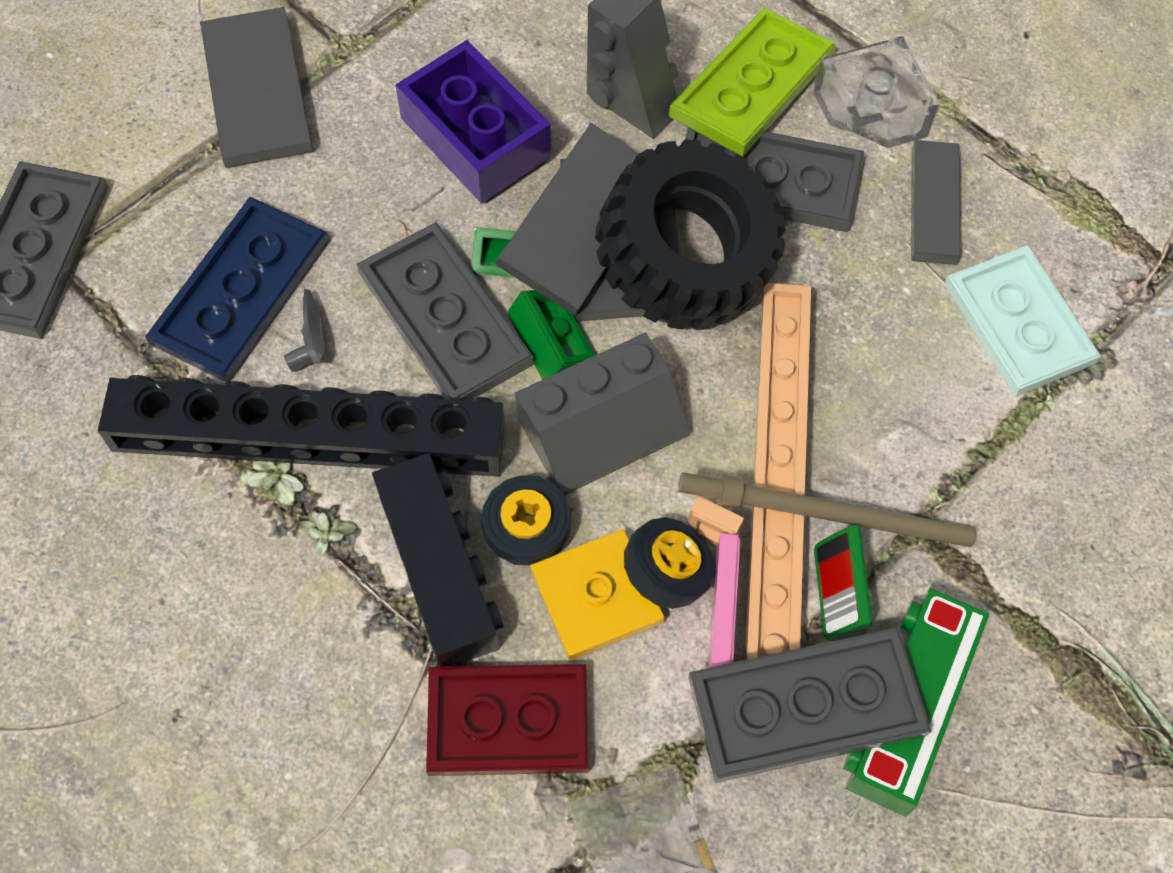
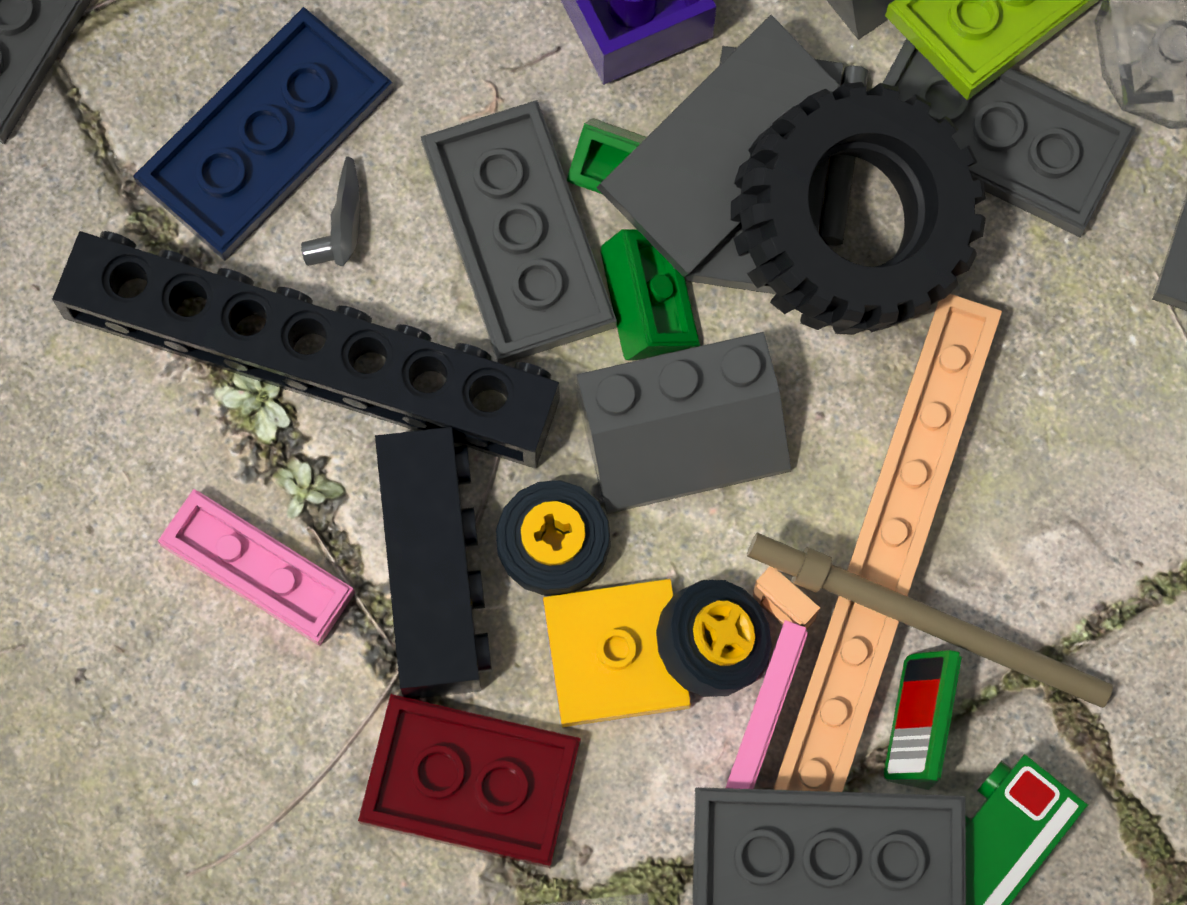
camera: 15 degrees right, 10 degrees up
(300, 597) = (256, 567): none -> bright pink tile

